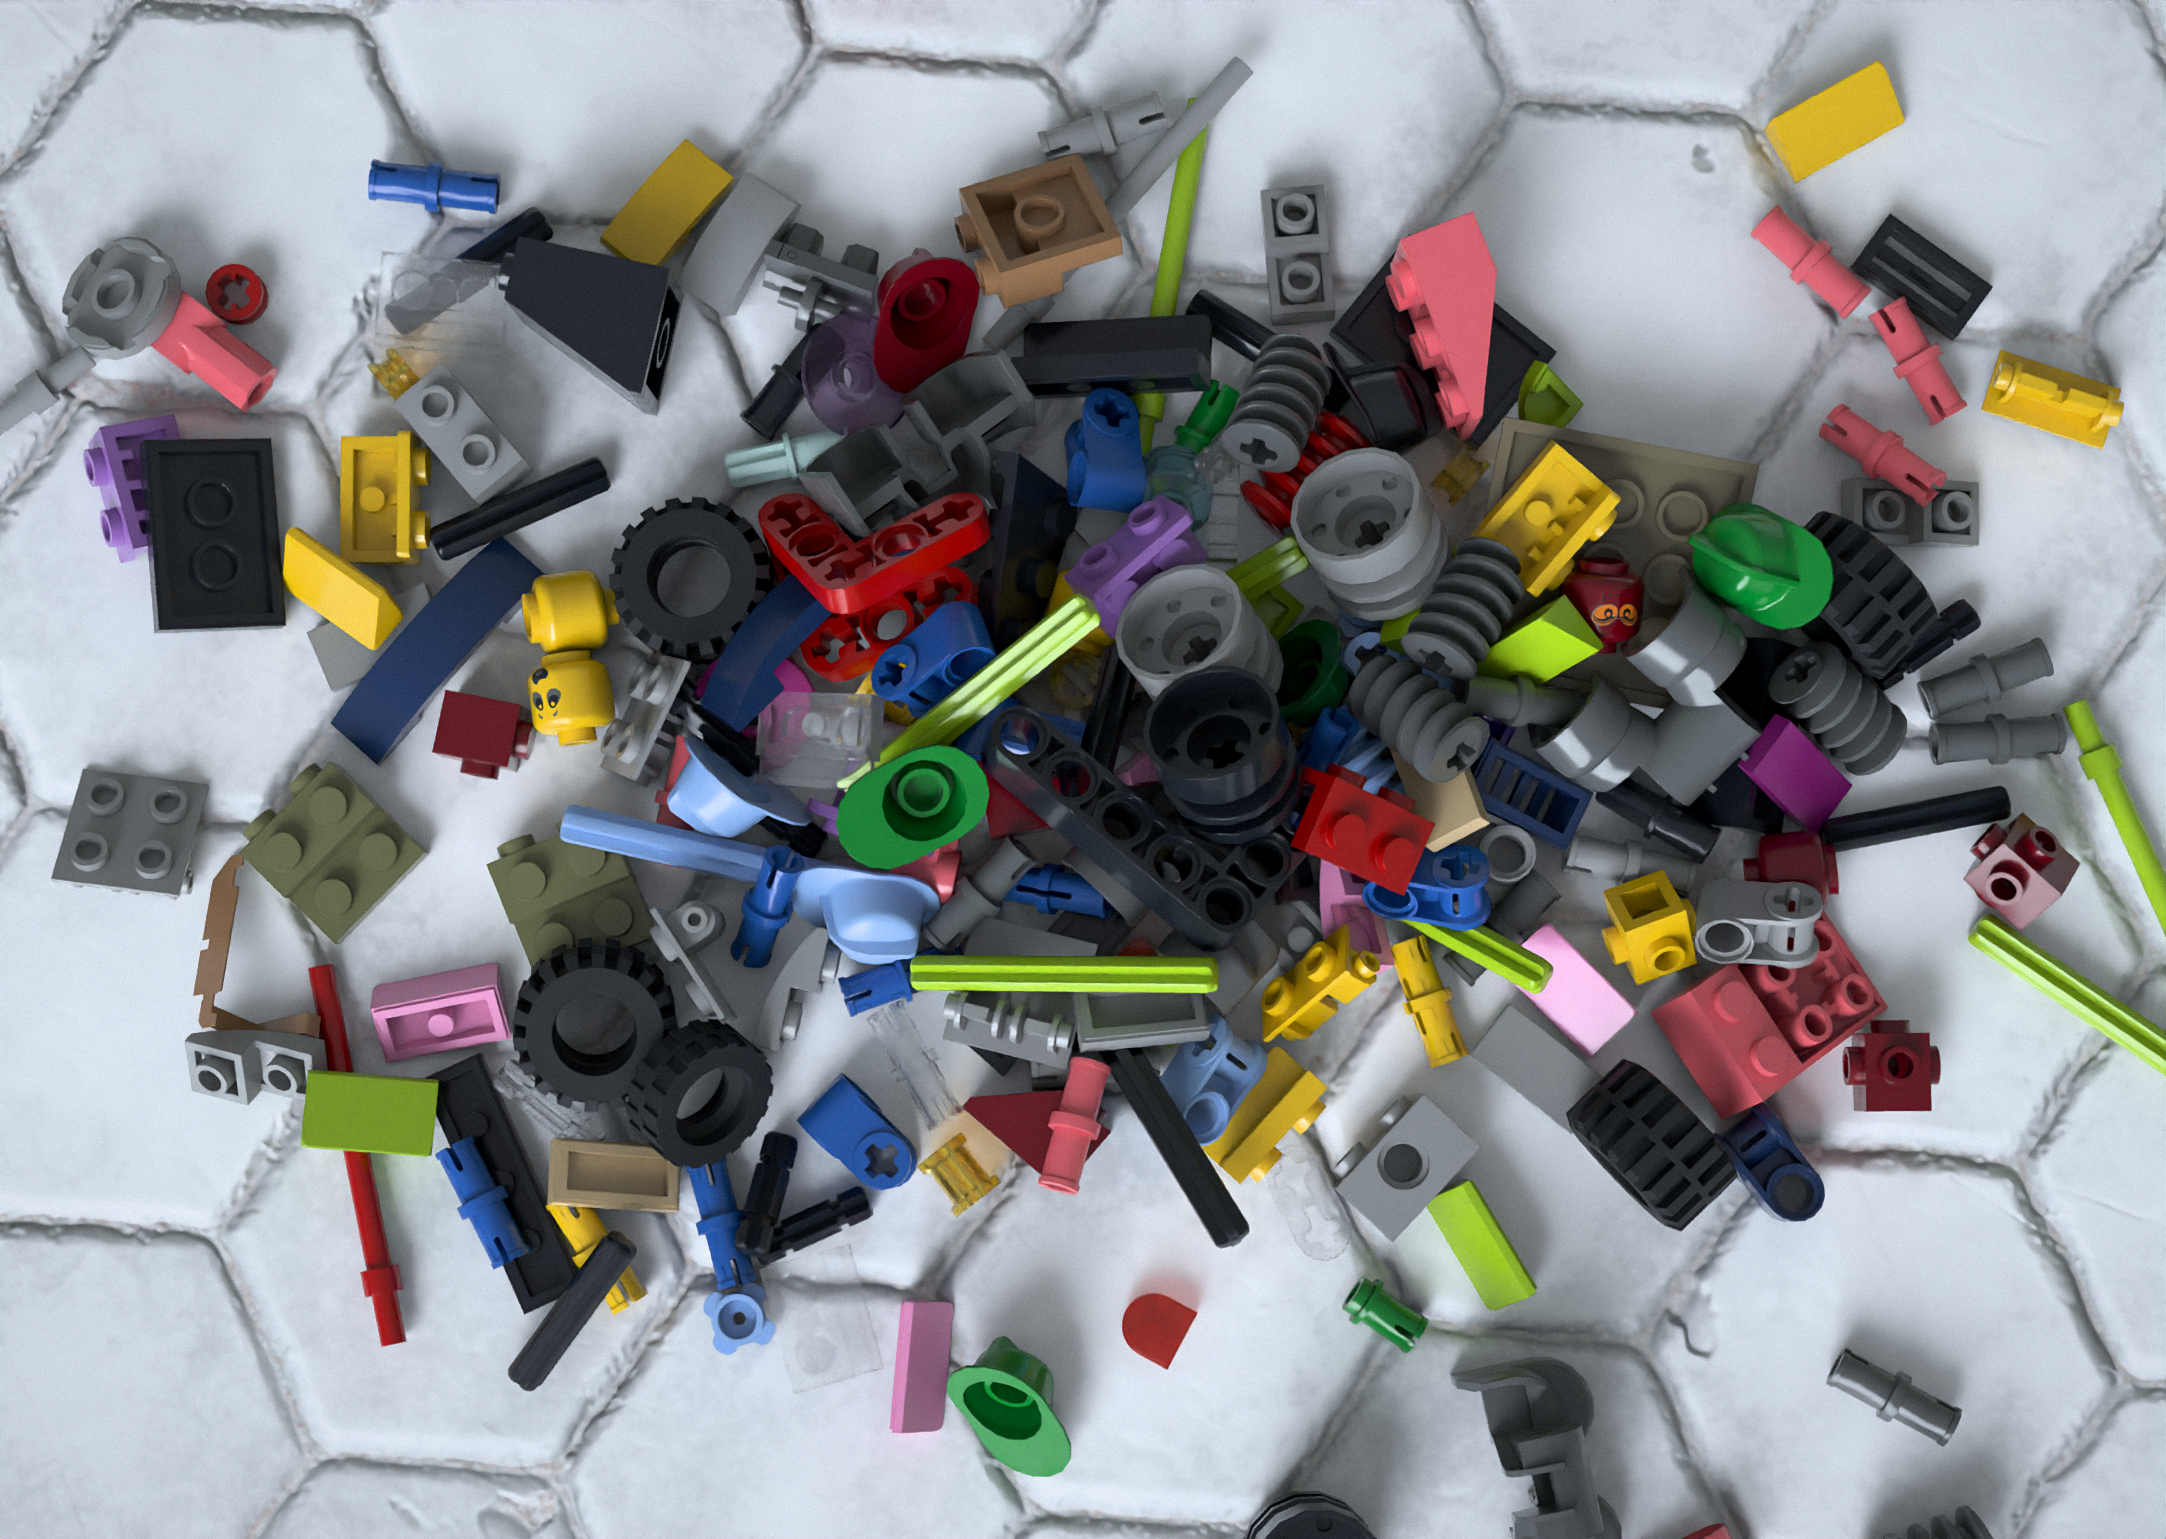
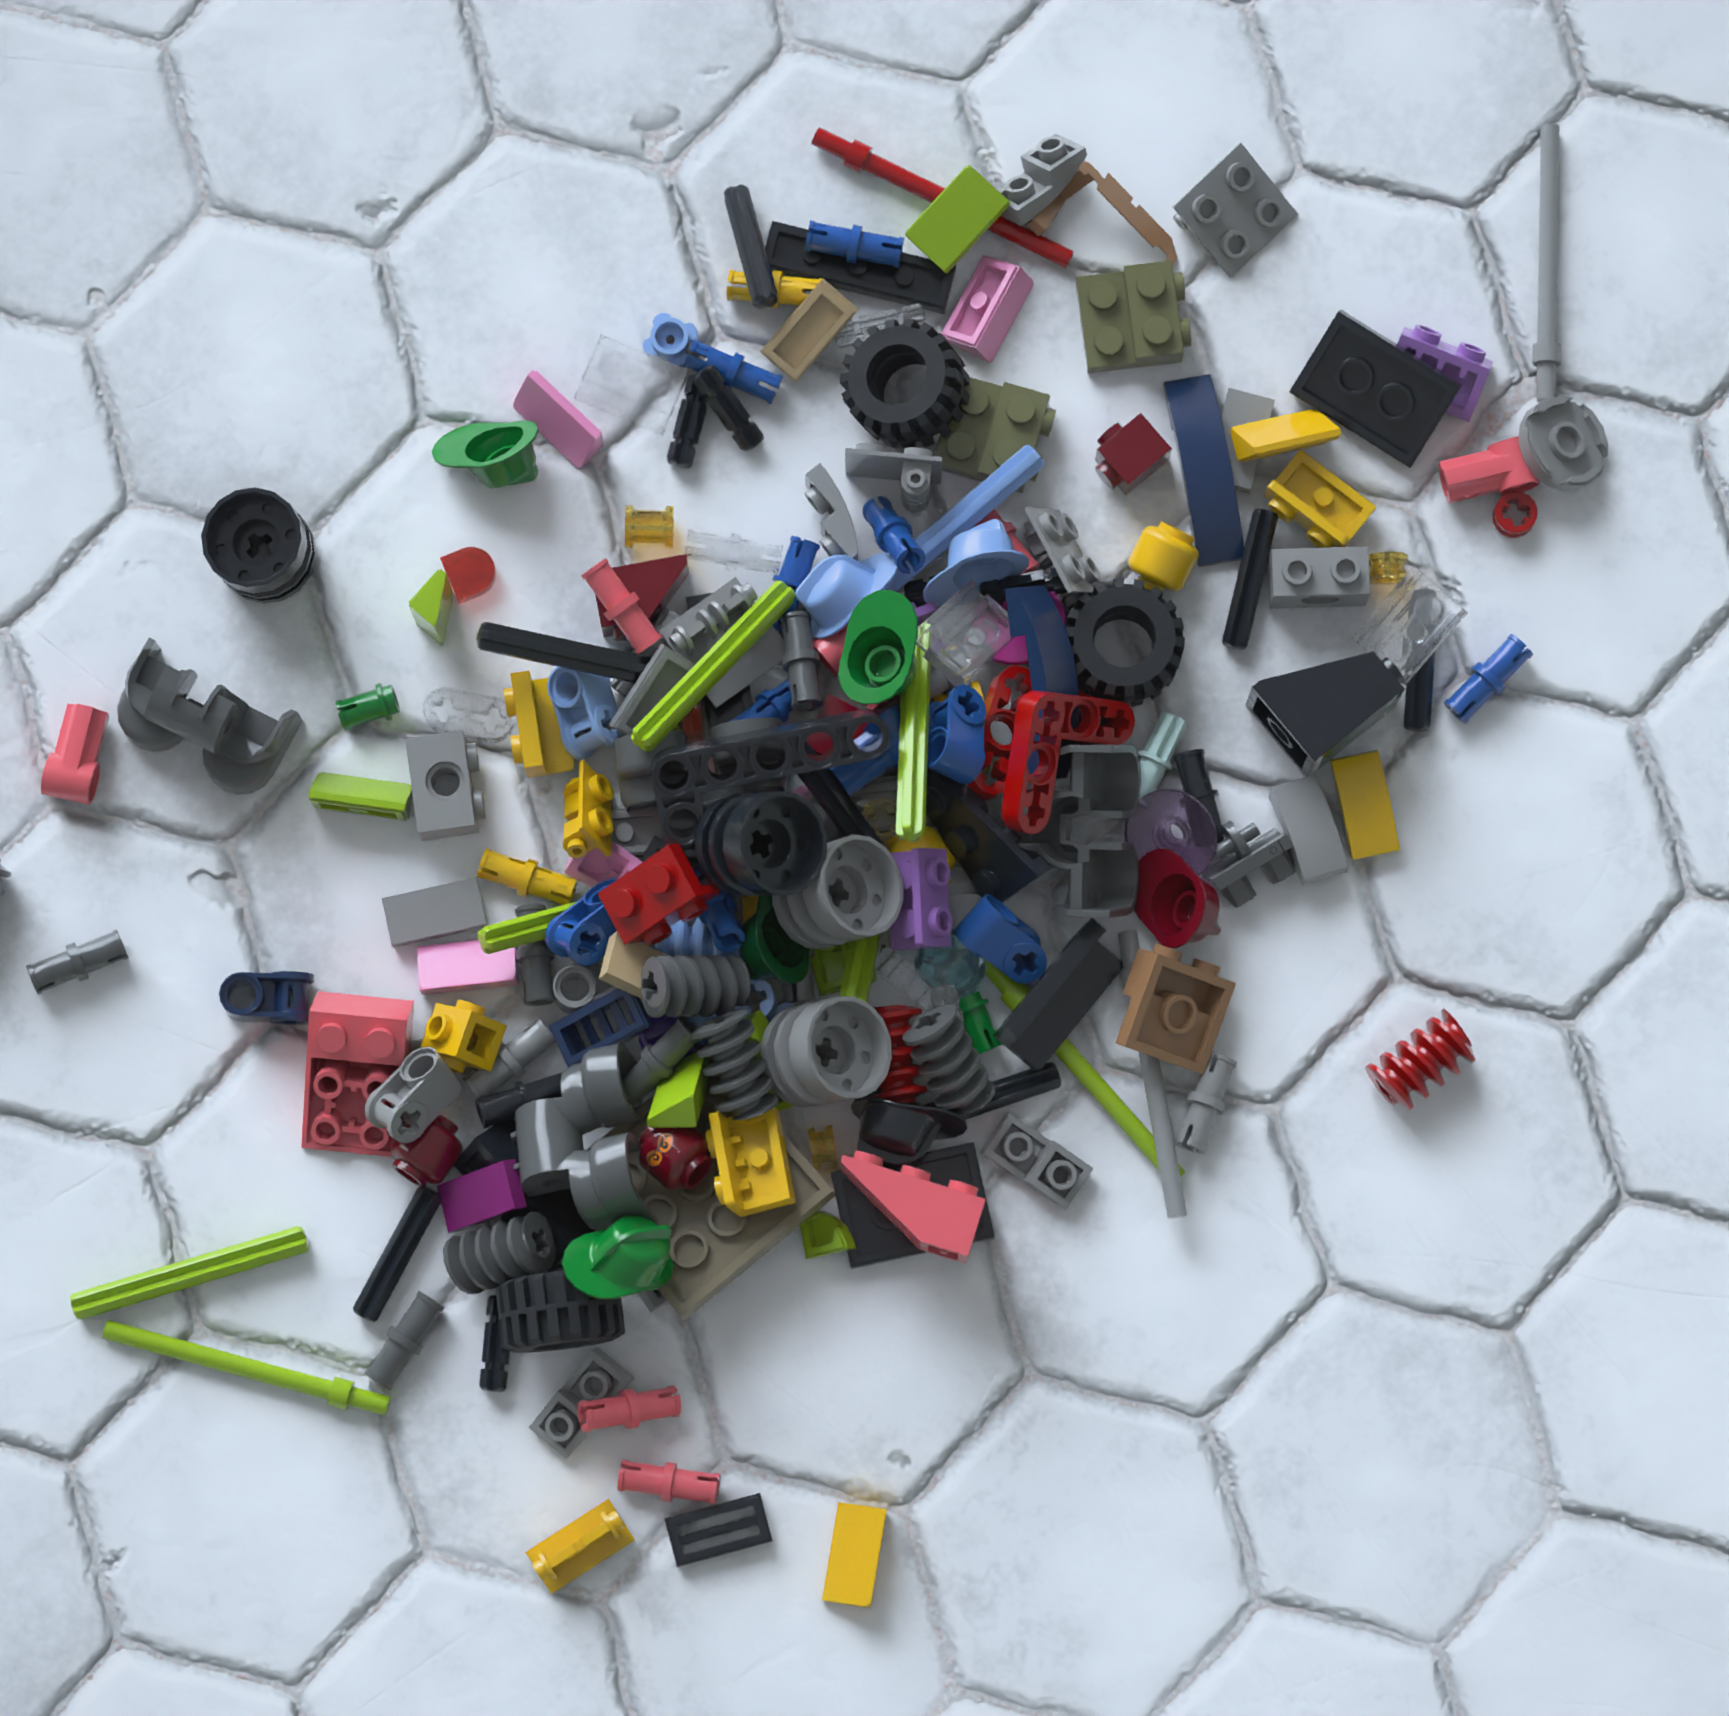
camera: 125 degrees right, 5 degrees down
(571, 697) = (1110, 520): yellow head -> none
(671, 1071) = (790, 410): black tyre -> none
(851, 1127) = (723, 487): blue piece -> none
(1230, 1327) = (433, 606): none -> lime slope
(1652, 1144) = (337, 929): black tyre -> none
(1811, 262) = (781, 1466): coral pin -> none
(1914, 1071) = (252, 1100): dark red brick -> none
(1985, 678) = (446, 1363): dark grey pin -> none
(2020, 869) = (317, 1284): brick -> none

